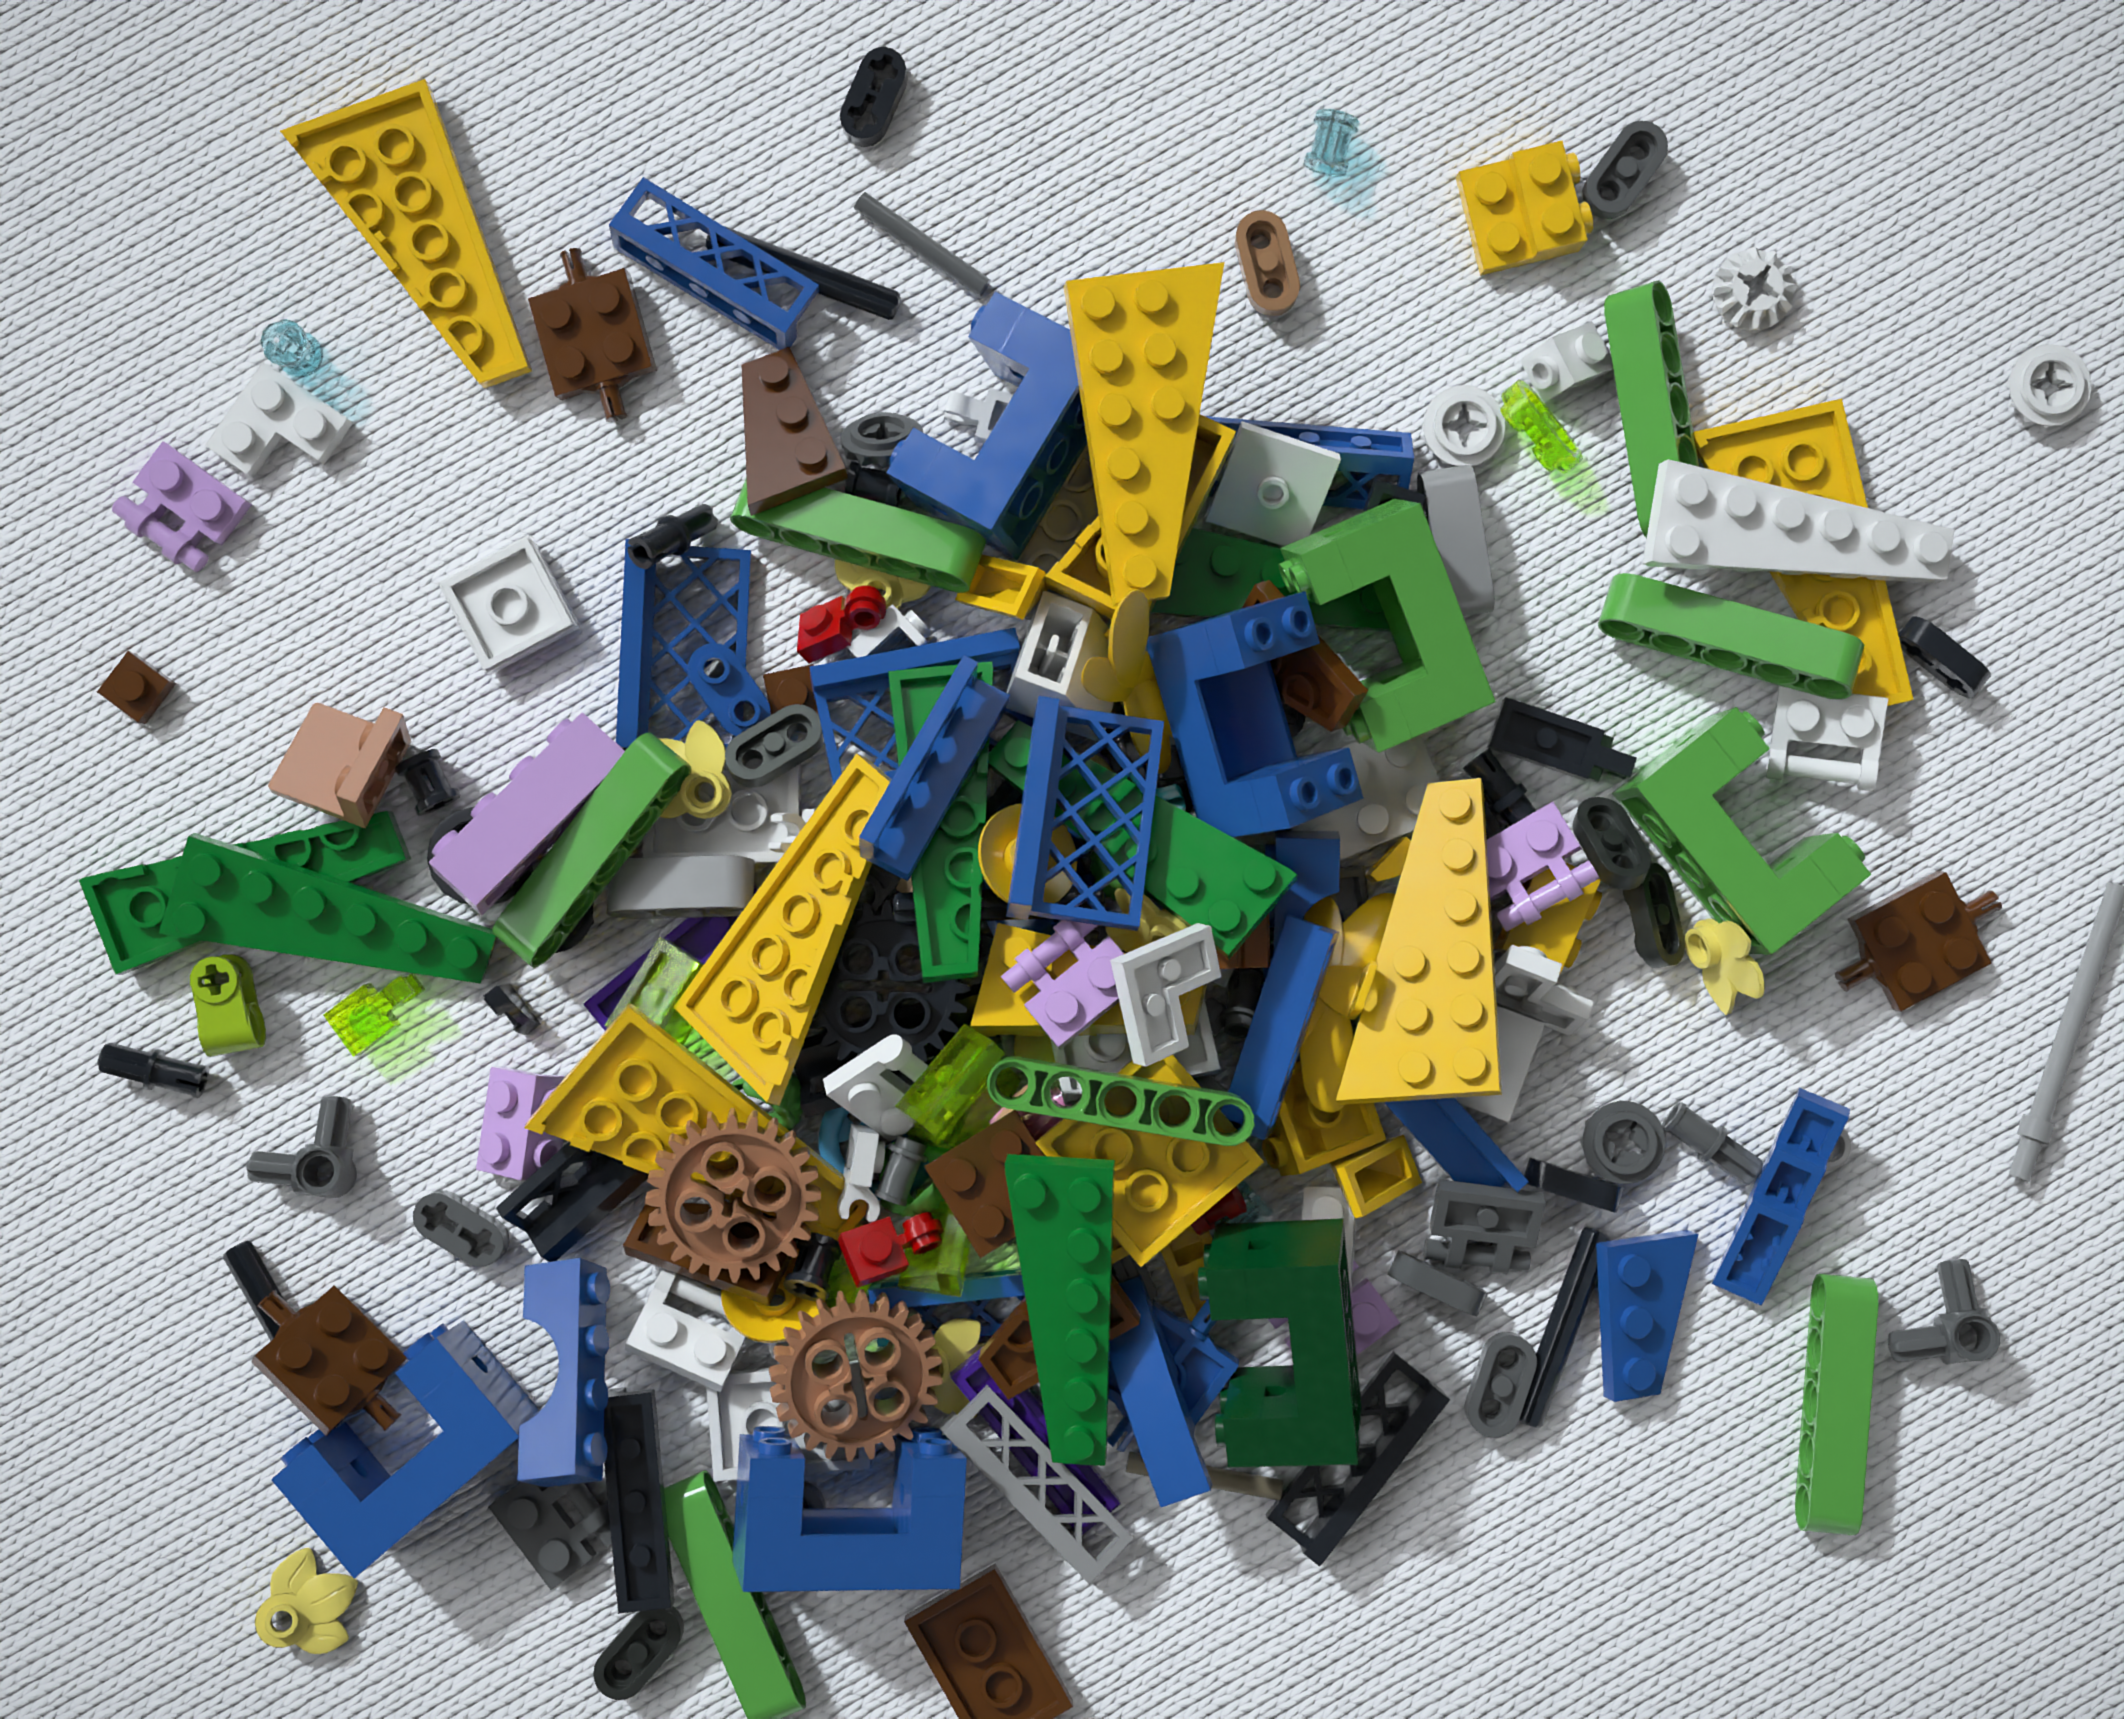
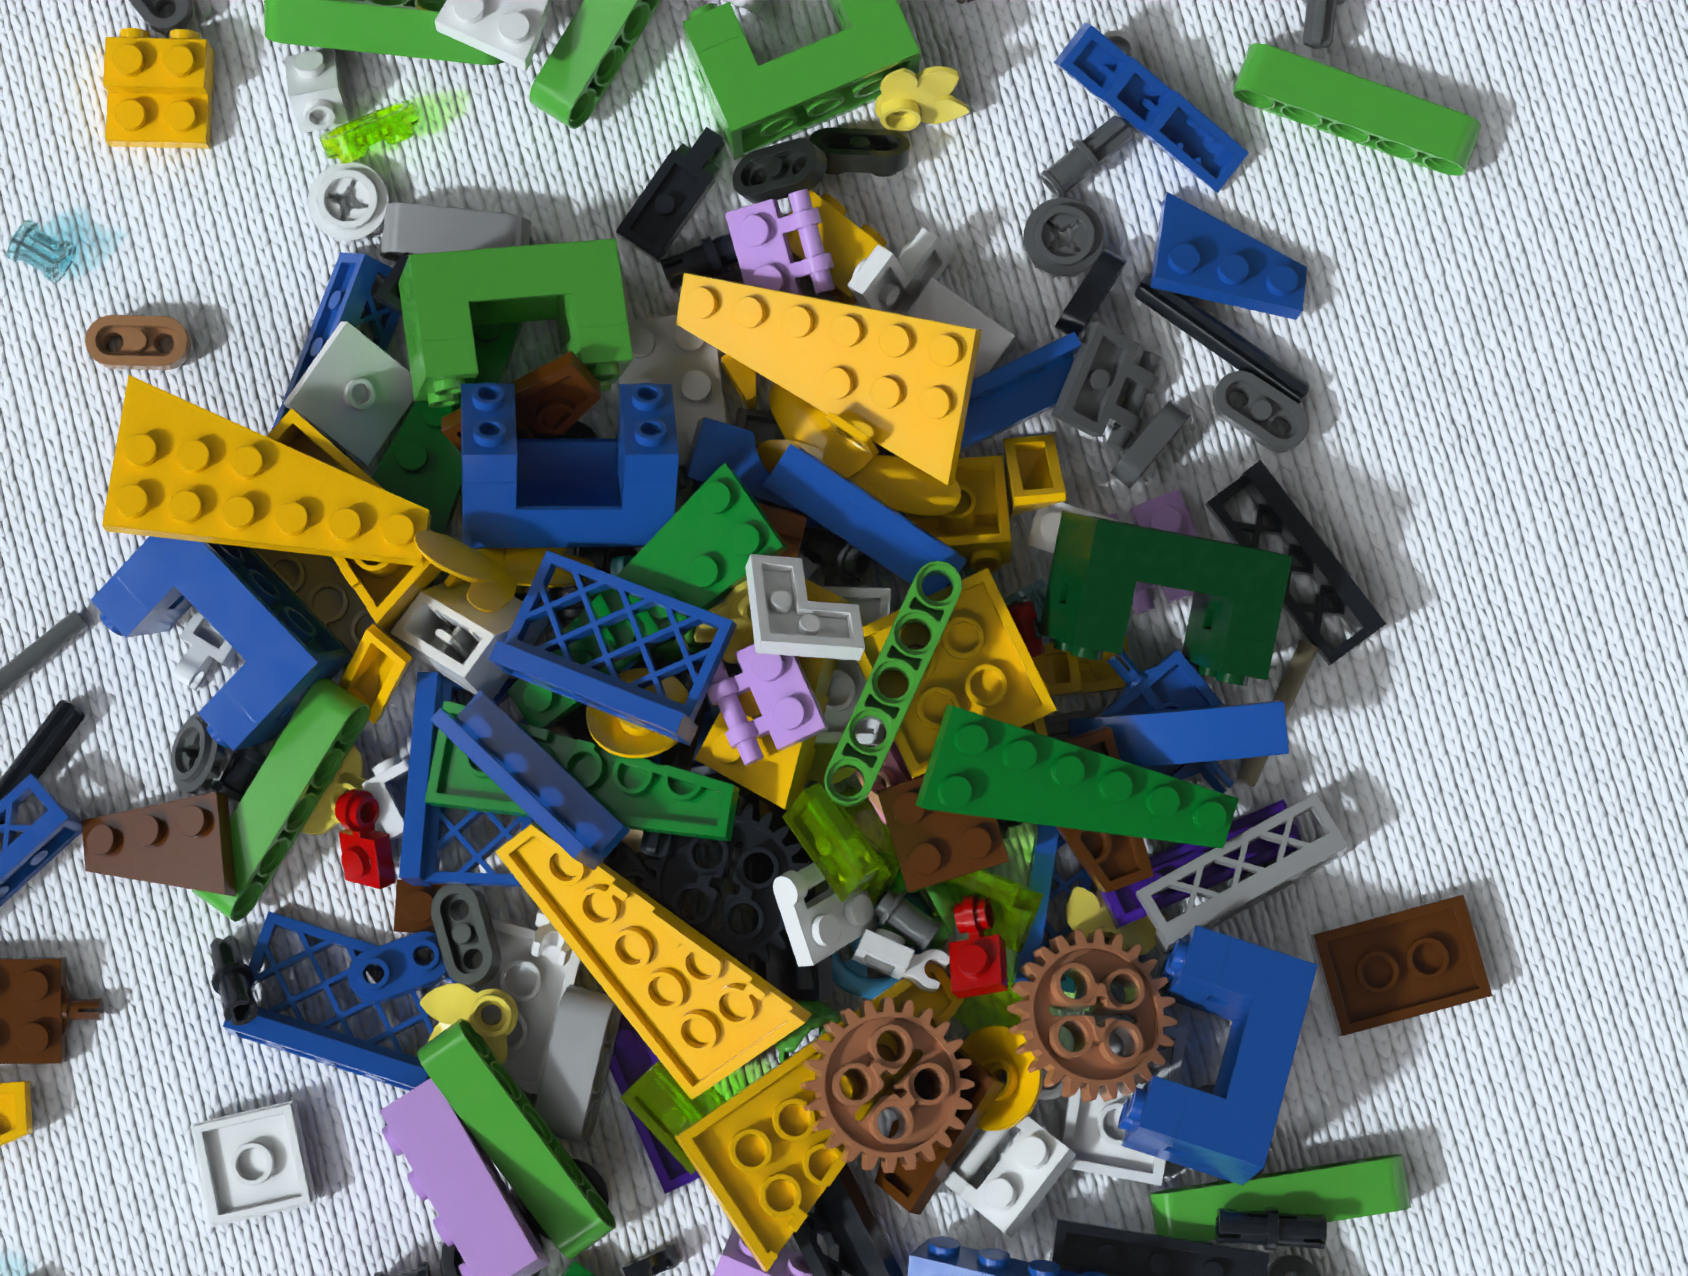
camera: 80 degrees left, 5 degrees down
(696, 1602) = (1271, 1228): none -> black pin
(813, 1267) = (979, 1031): black bush -> none

